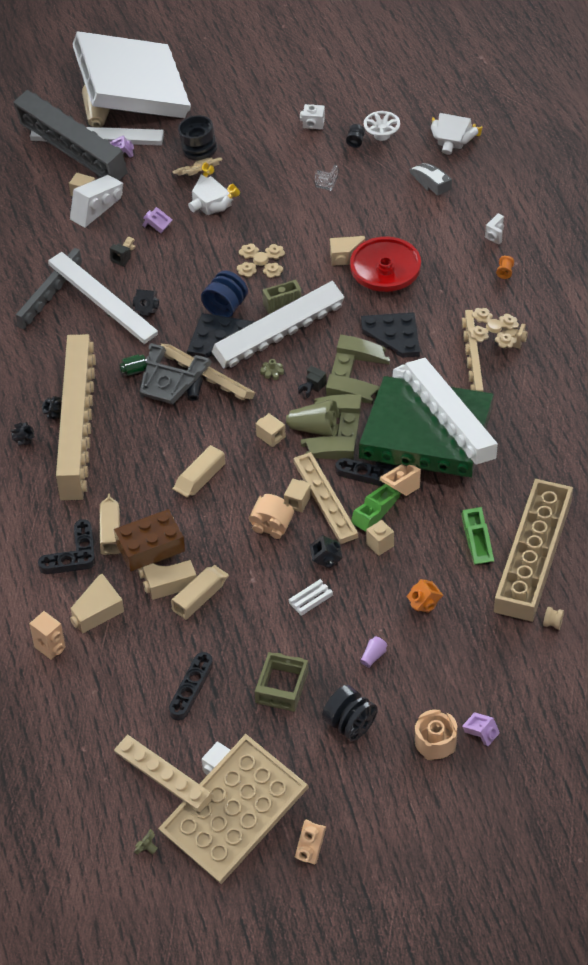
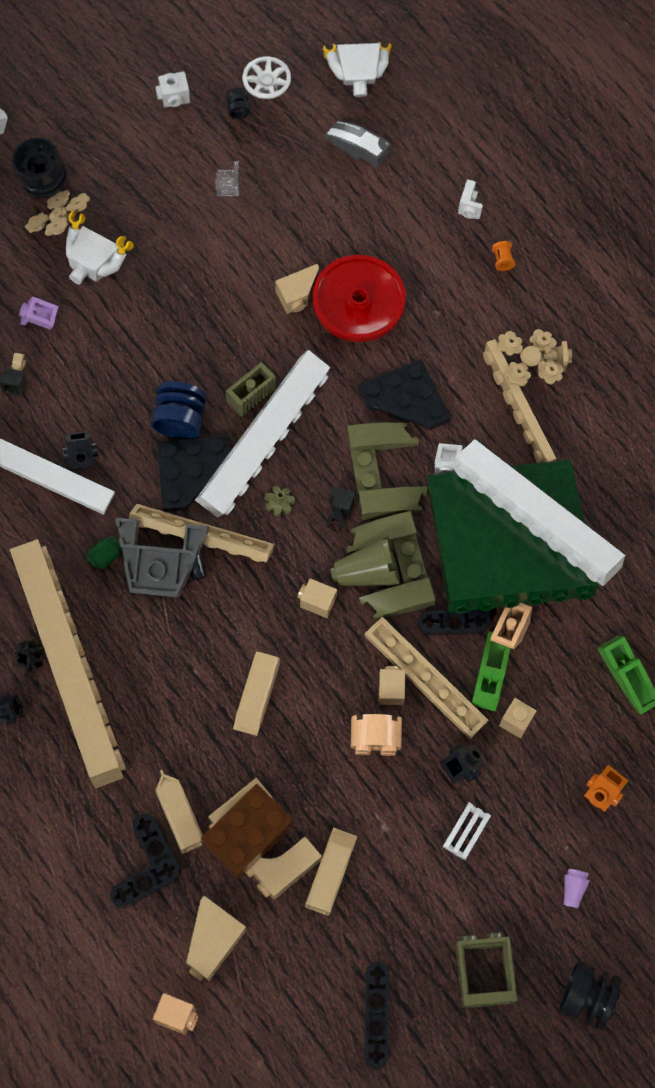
camera: 25 degrees left, 20 degrees up
(261, 258) = (195, 333): tan plant -> none

